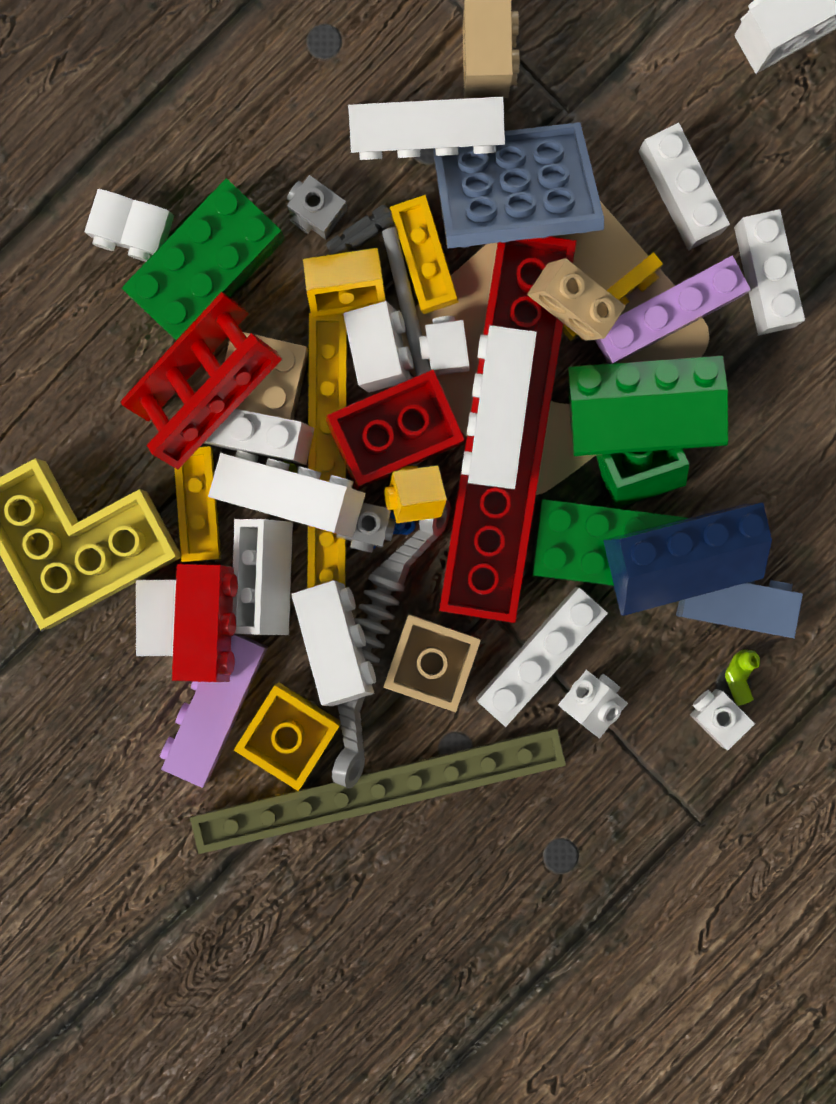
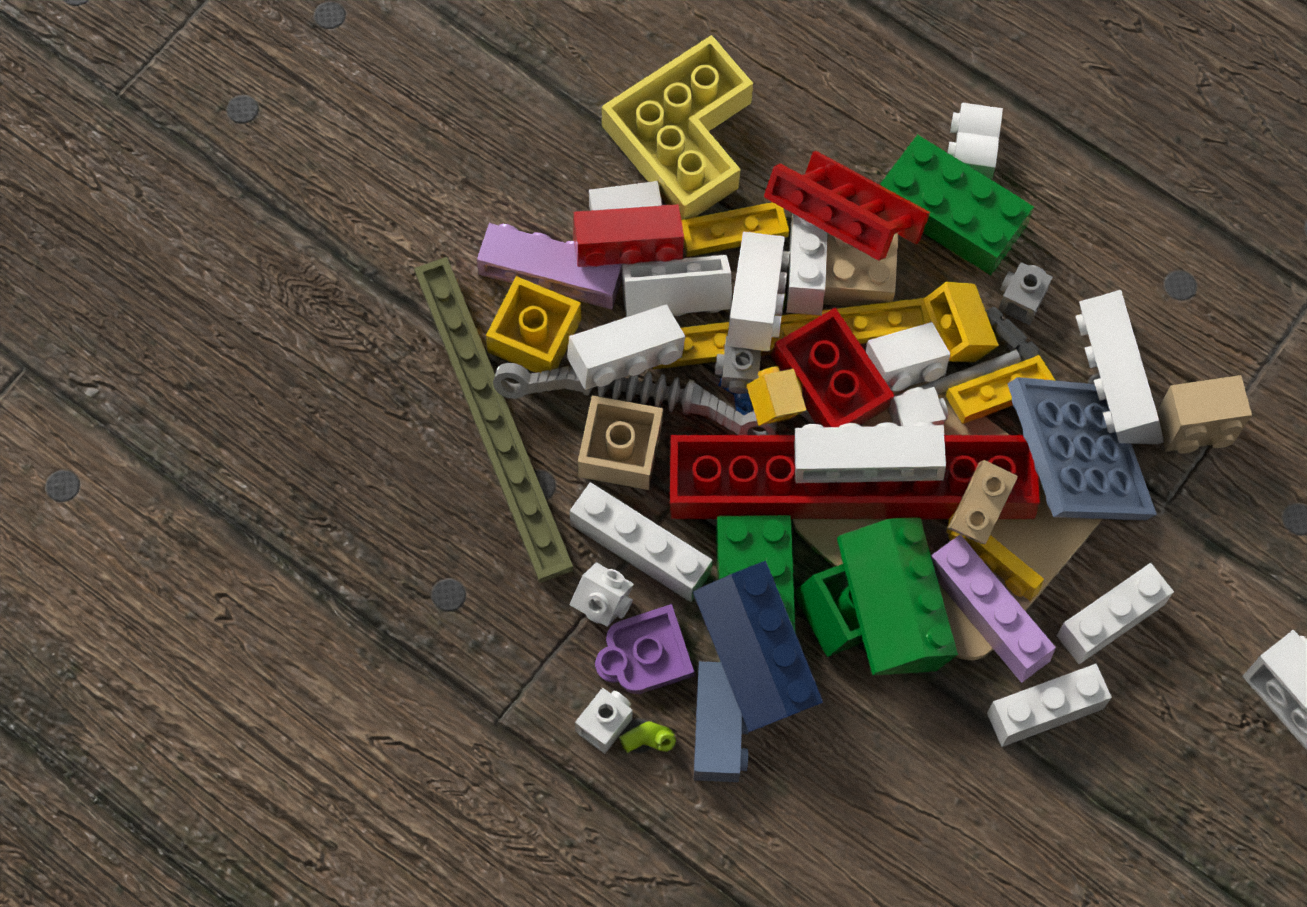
camera: 80 degrees right, 20 degrees down
(654, 666) = (645, 652): none -> medium lavender plate

